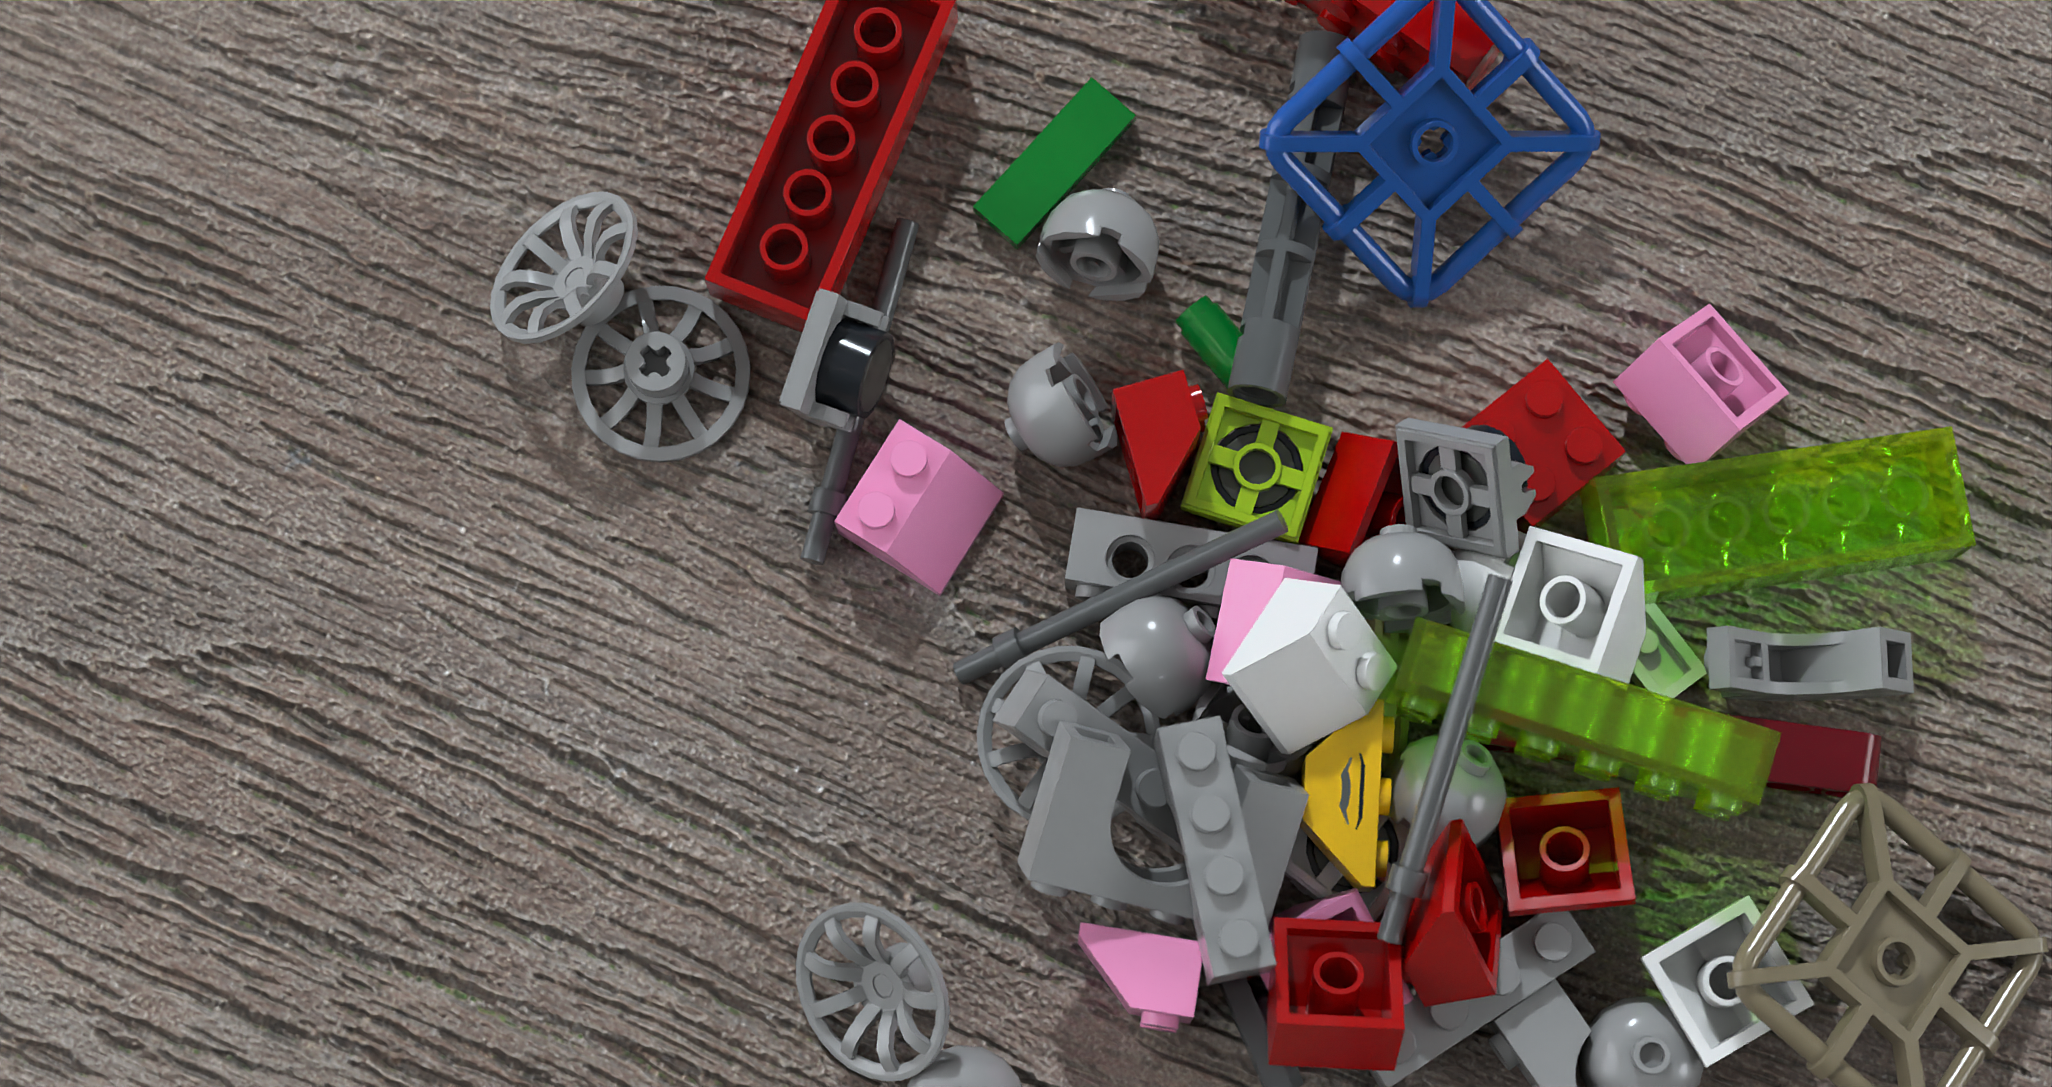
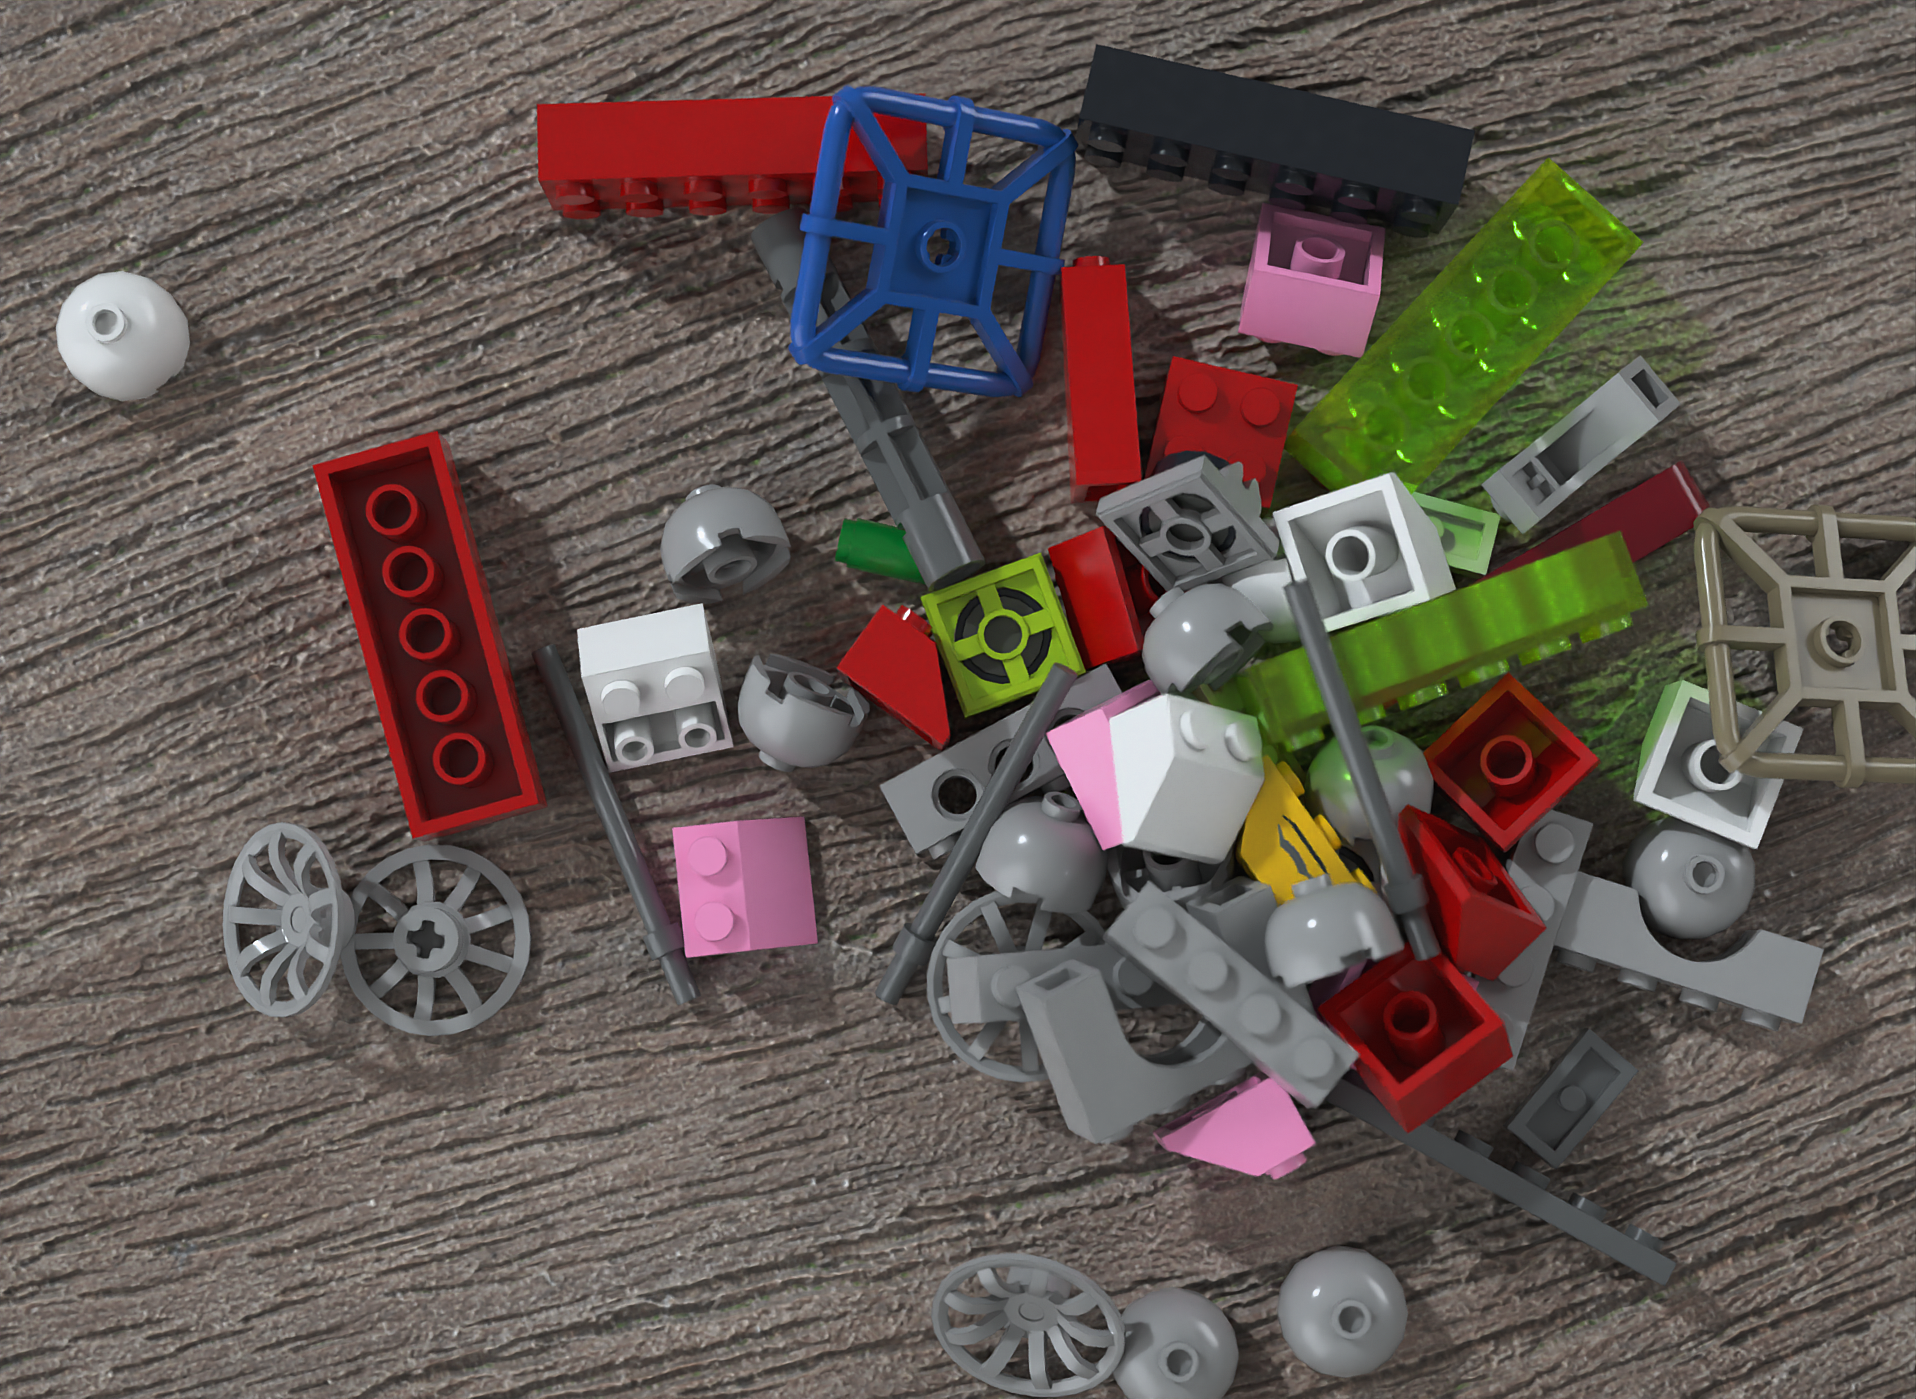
camera: 45 degrees left, 5 degrees up
(839, 363) = (584, 821): piece -> none
(968, 311) = (654, 687): none -> white slope
(1054, 163) = (627, 503): green tile -> none
(1324, 858) = (1327, 931): none -> light grey cylinder
(1479, 333) = (1098, 379): none -> red slope
(1747, 257) = (1272, 142): none -> black brick

